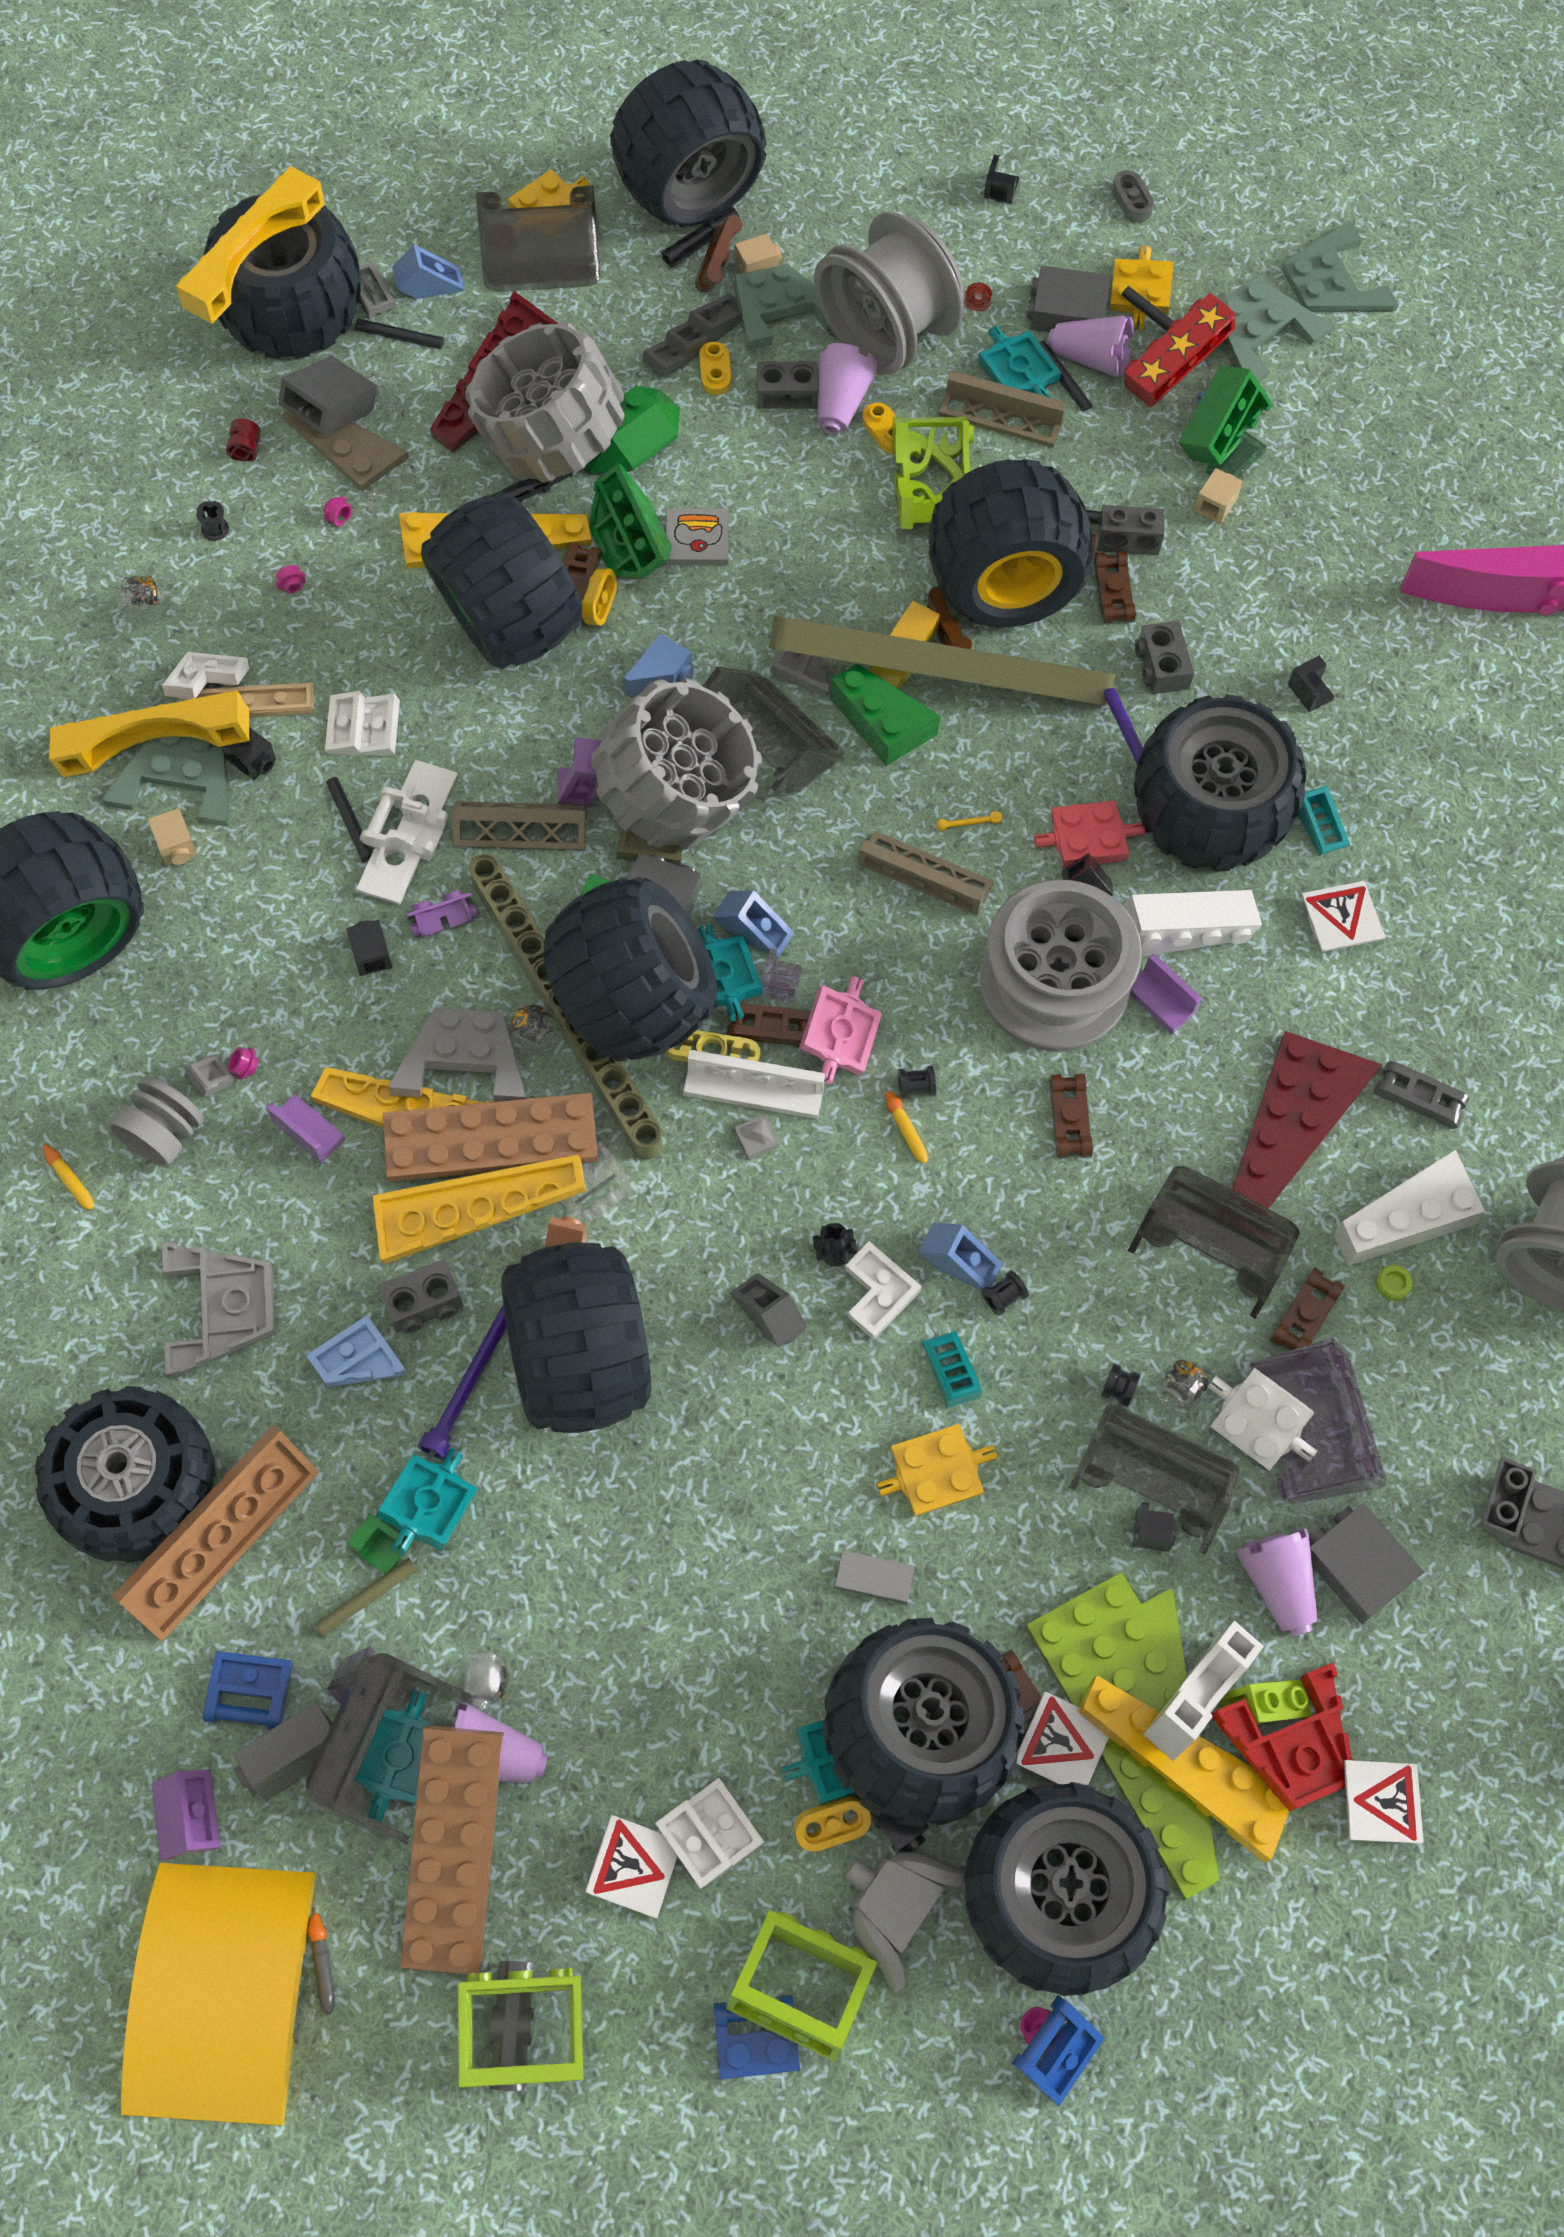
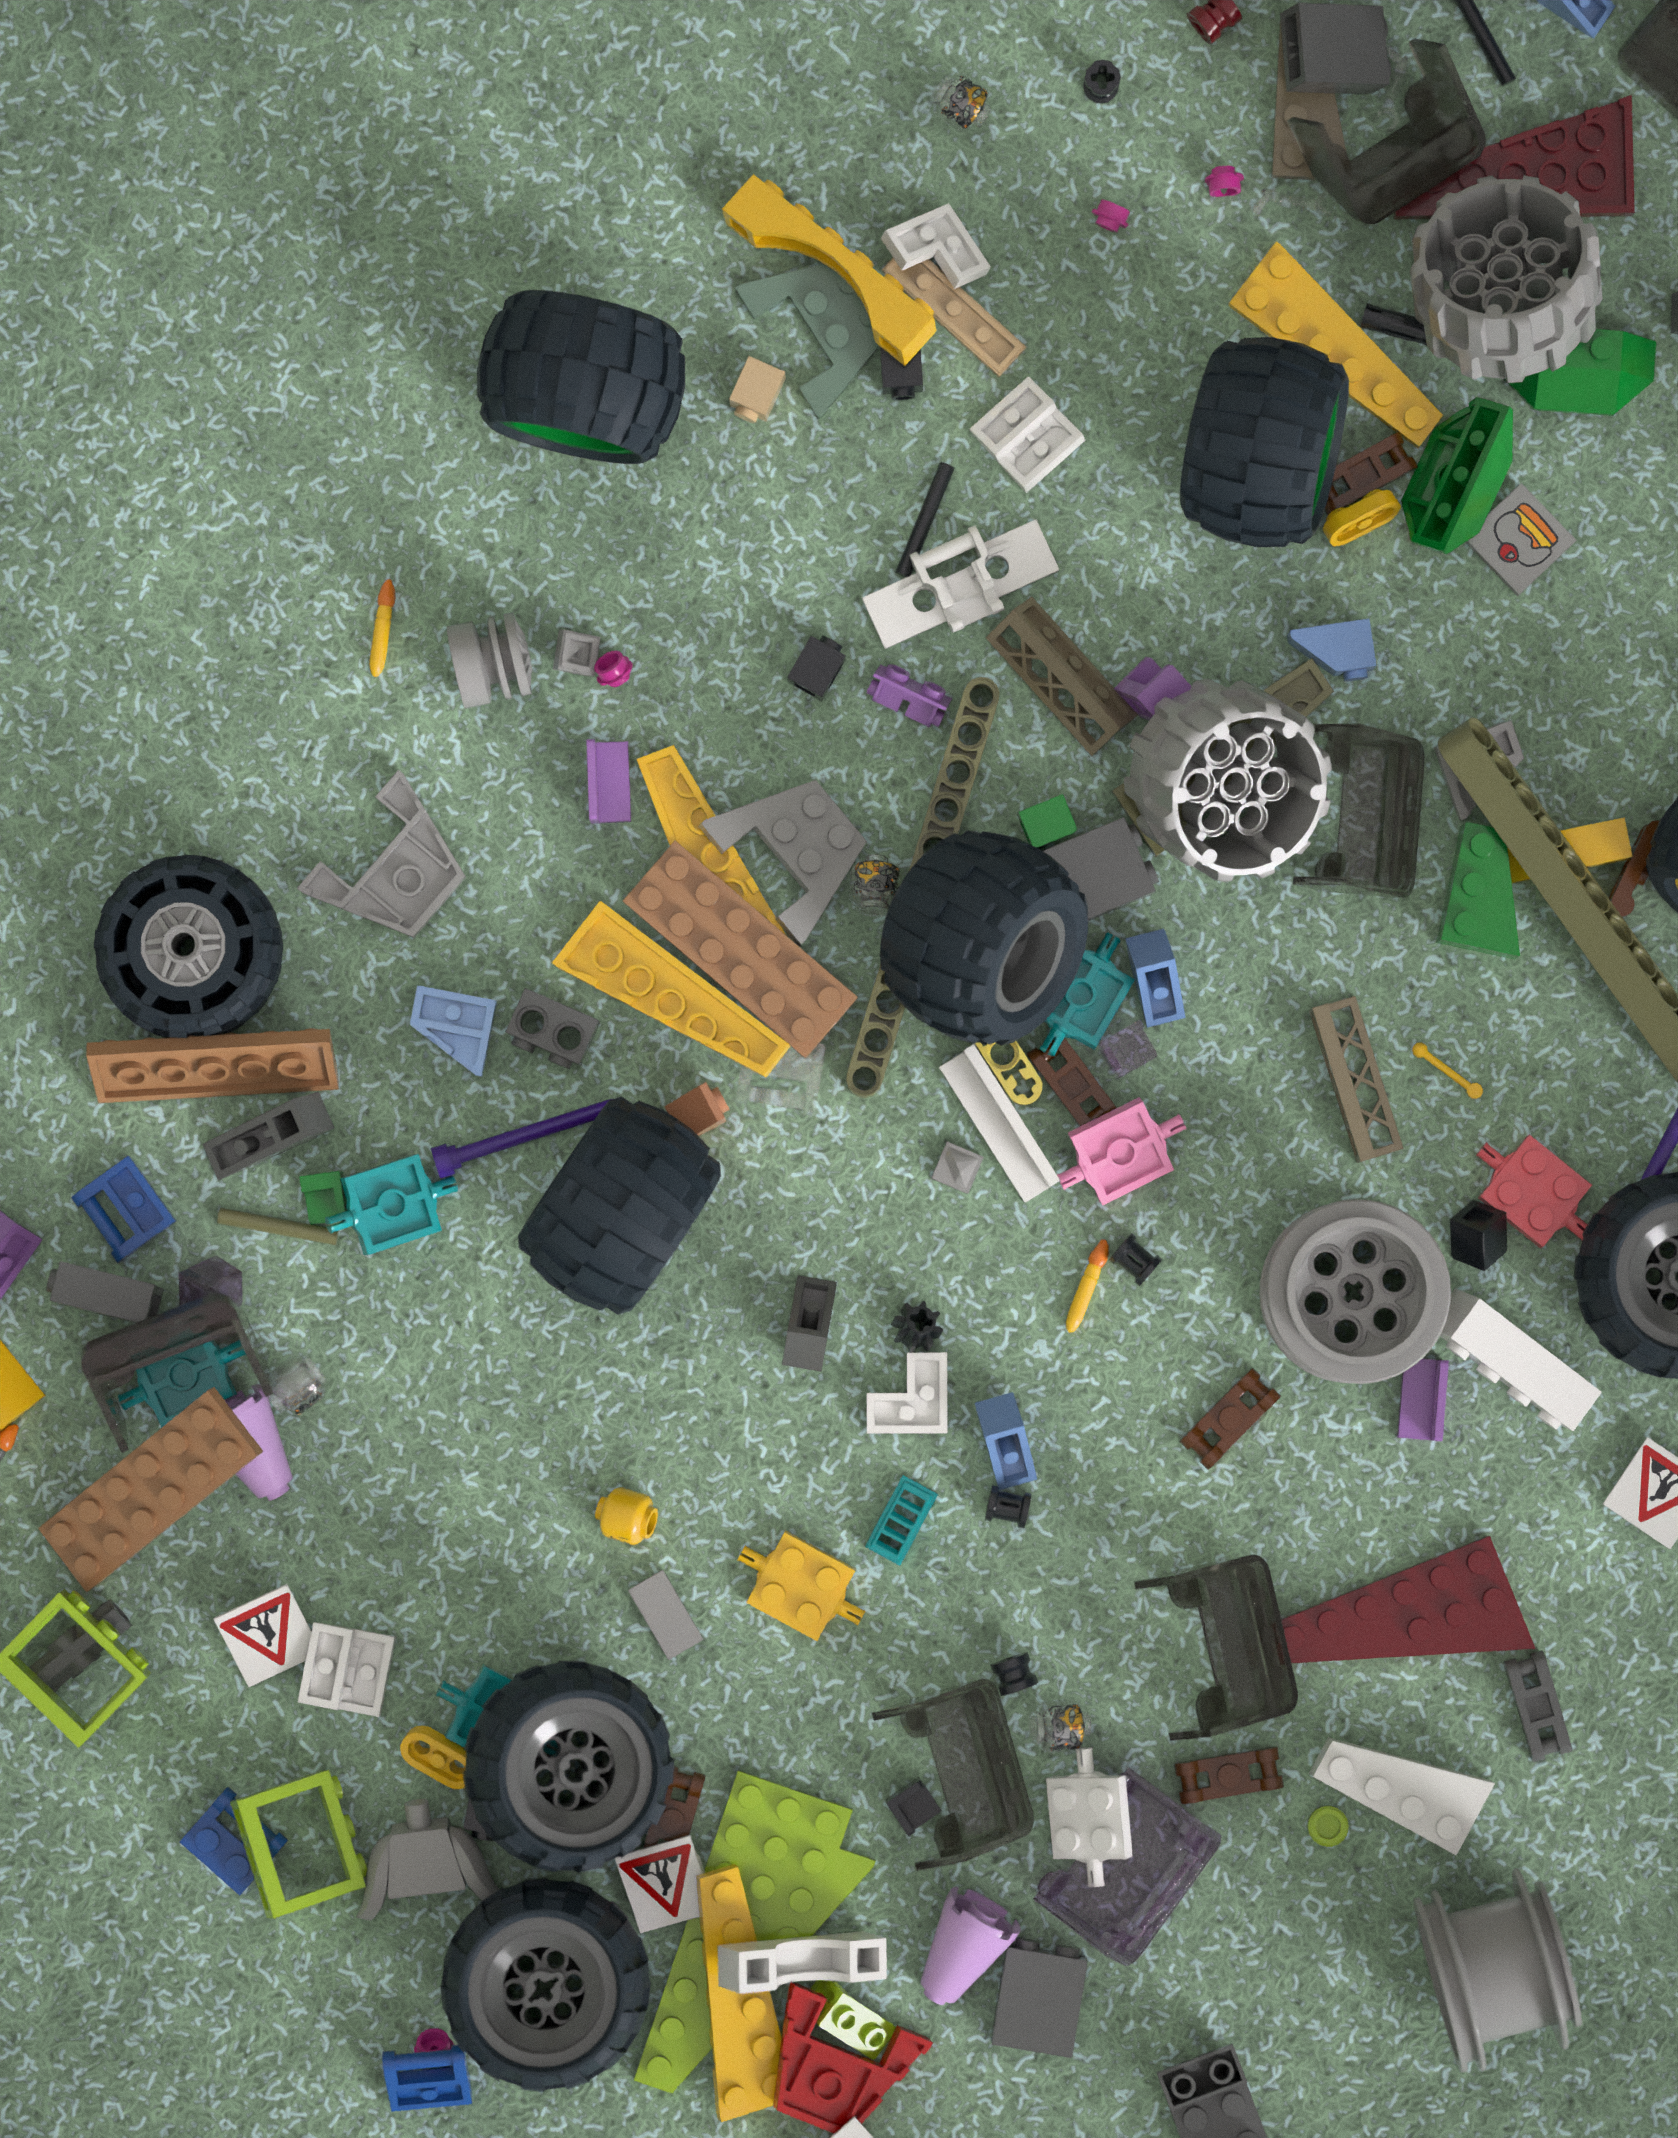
camera: 50 degrees right, 20 degrees up
(300, 1543) = (268, 1135): none -> dark grey slope
(424, 380) = (1418, 156): none -> clear smoke windscreen
(784, 1539) = (626, 1516): none -> yellow head

